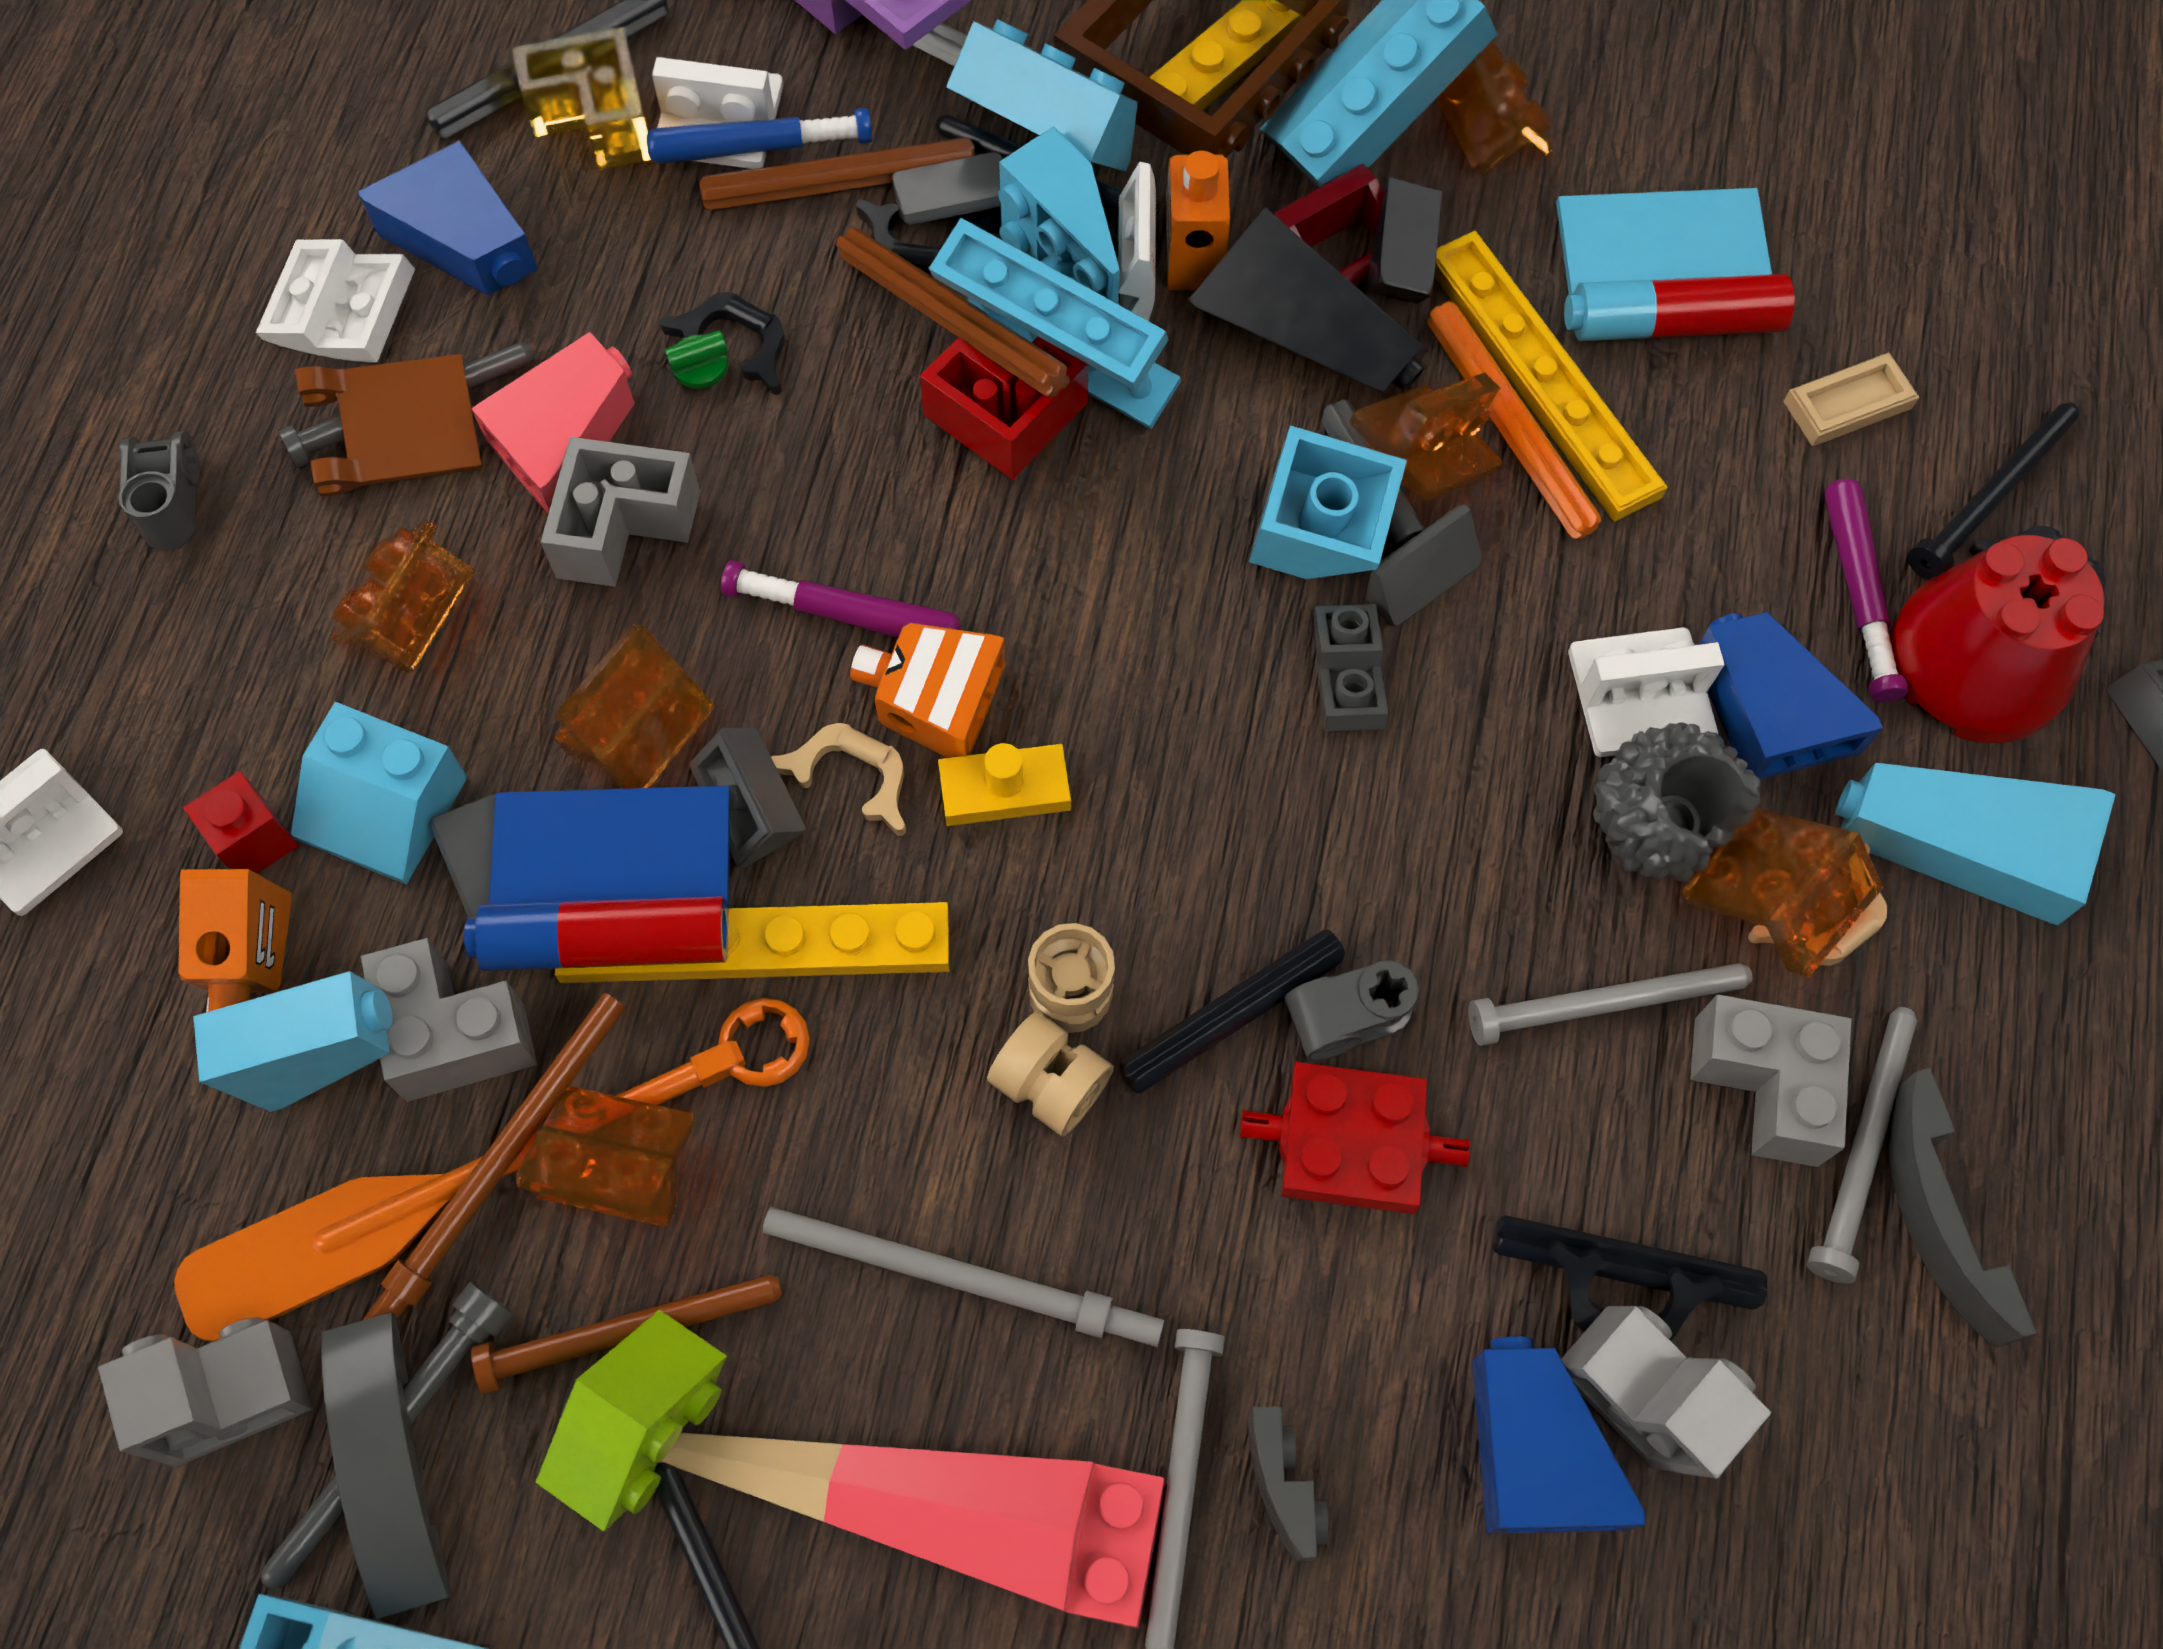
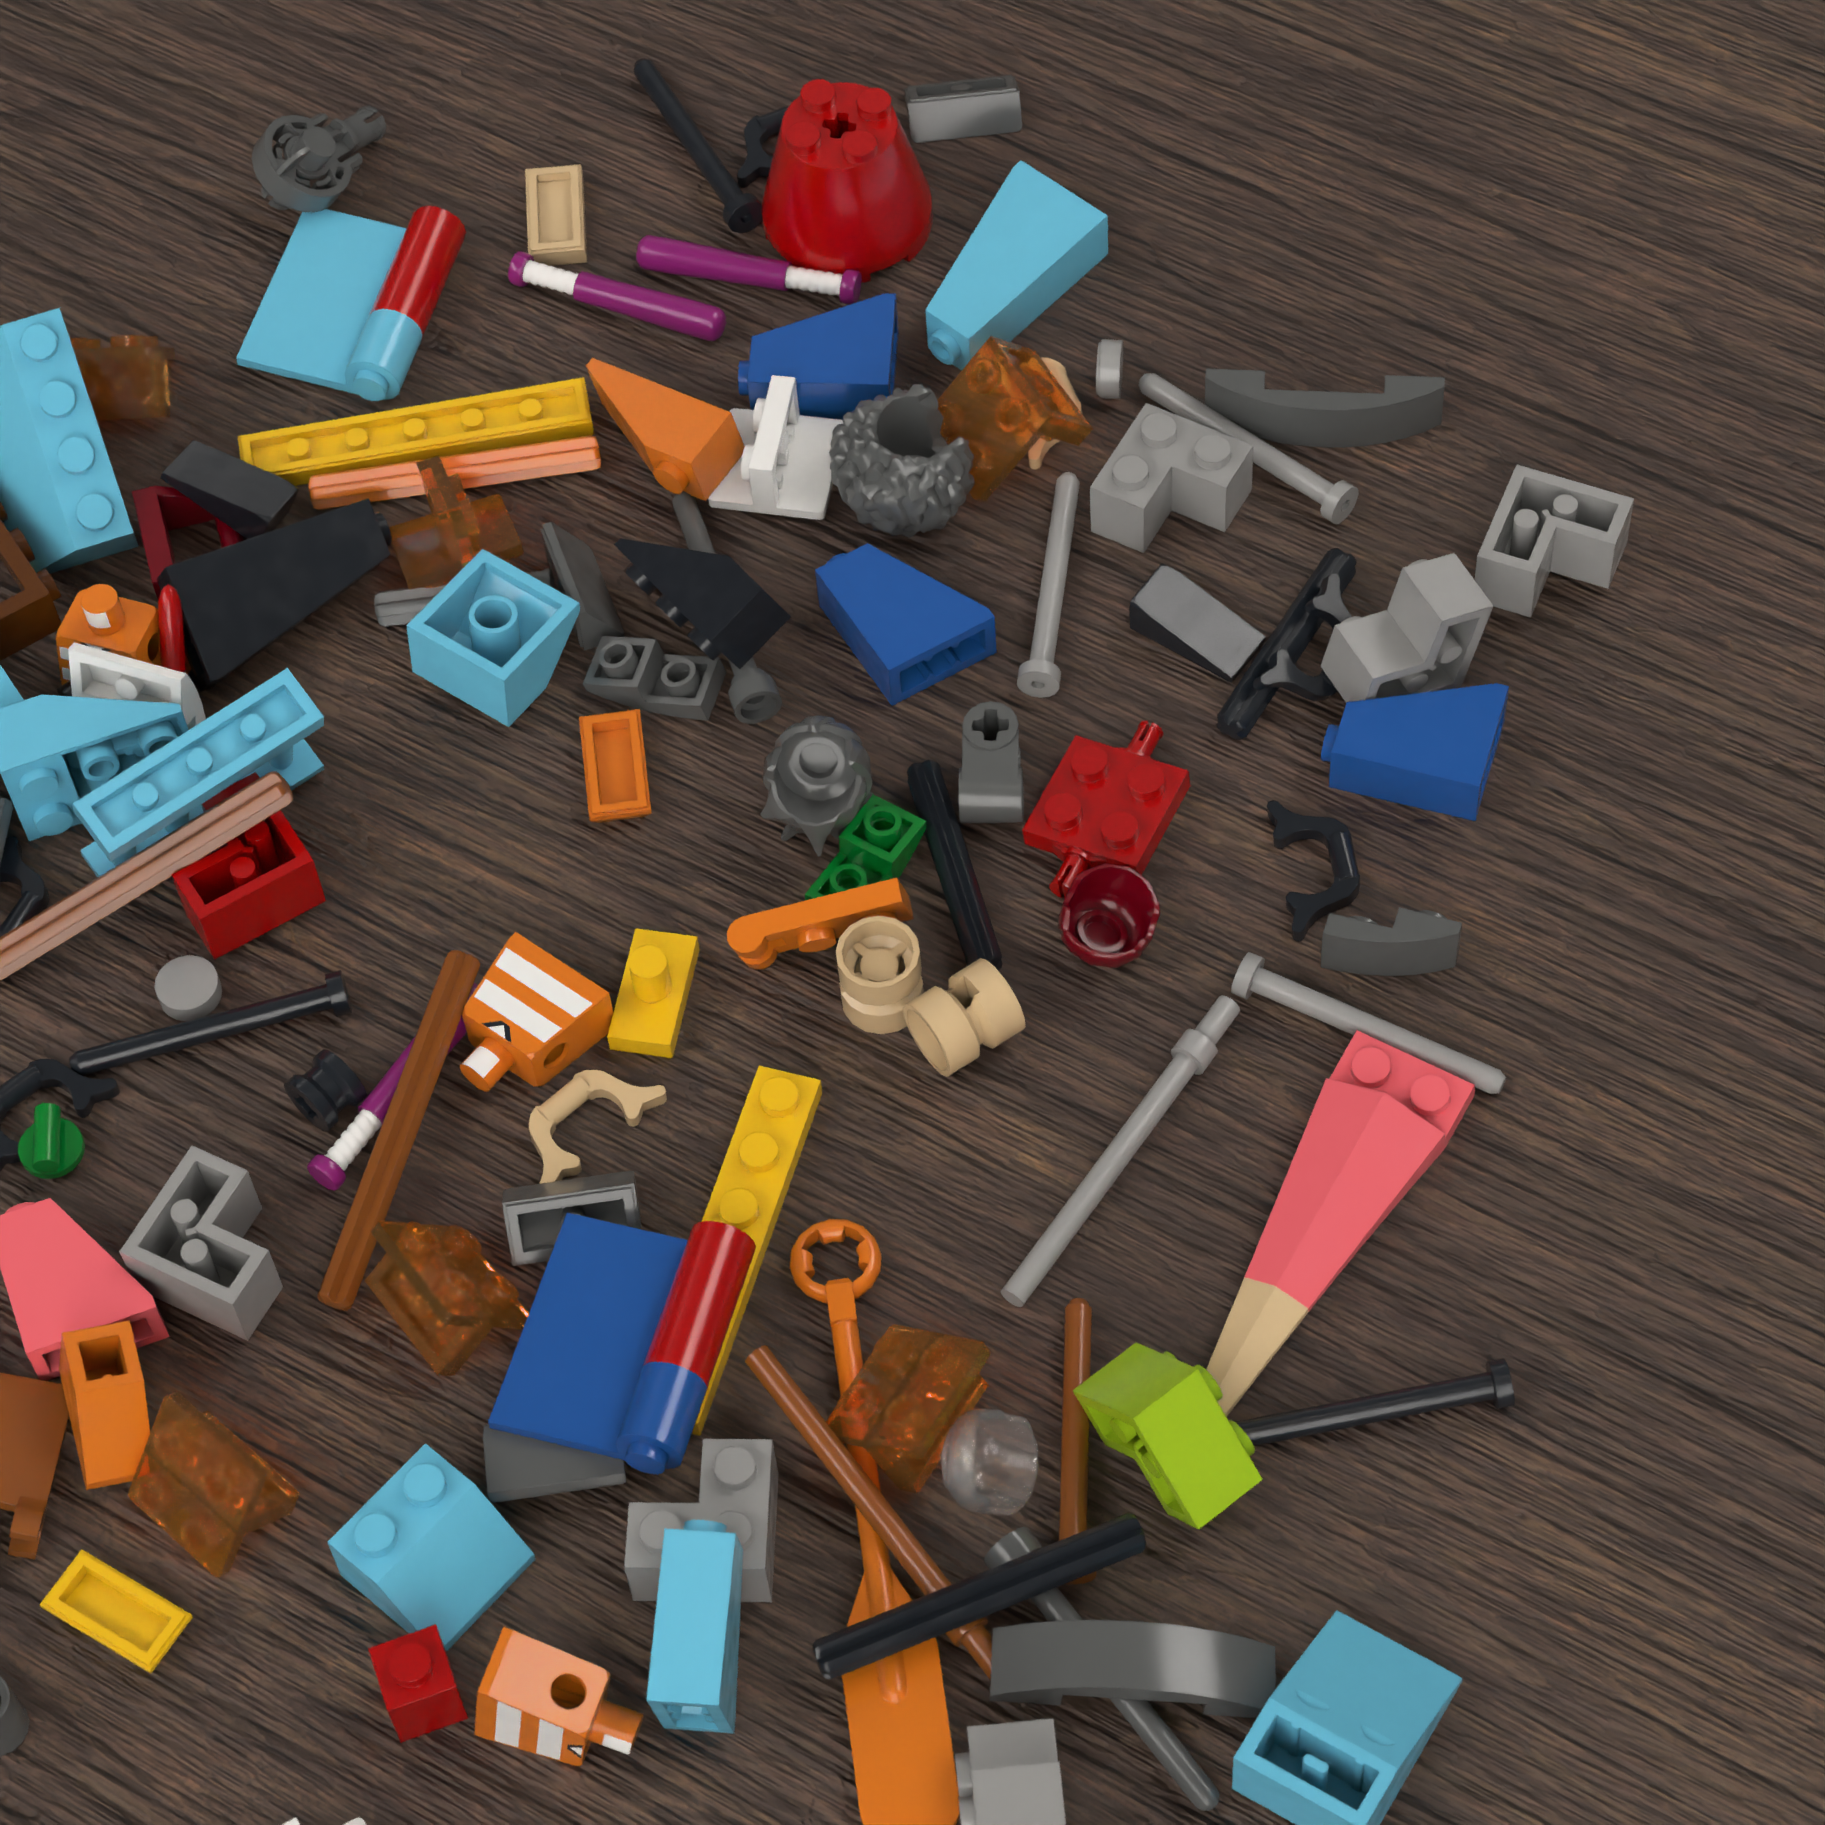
camera: 65 degrees left, 10 degrees down
(276, 571) = (116, 1611): none -> yellow tile
(412, 1292) = (979, 1596): none -> black axle
(450, 484) = (105, 1401): none -> orange slope
(565, 1254) = (990, 1461): none -> clear hair
(792, 617) = (398, 1130): none -> dark orange axle
(808, 546) = (325, 1090): none -> black wheel
(887, 405) = (188, 988): none -> light grey tile
(913, 519) = (216, 1026): none -> black bar
(1106, 902) = (814, 922): none -> orange plate
(1198, 260) = (171, 629): none -> red piece
(1204, 928) = (871, 848): none -> green slope
(1211, 1178) = (1109, 915): none -> dark red hair
(1238, 665) = (615, 766): none -> orange tile
(1259, 844) = (816, 779): none -> dark grey hair
(1363, 758) = (752, 691): none -> dark grey piece
(1376, 1403) = (1337, 838): none -> black helmet
(1435, 686) = (711, 592): none -> black slope
(1494, 866) = (902, 621): none -> blue slope
(1613, 1158) = (1193, 624): none -> slope
(1622, 578) = (676, 435): none -> orange slope
(1778, 505) = (641, 303): none -> magenta piece
(1809, 162) = (312, 154): none -> dark grey pin
(1888, 1512) = (1548, 528): none -> light grey brick
(1897, 971) = (1109, 369): none -> light grey tile

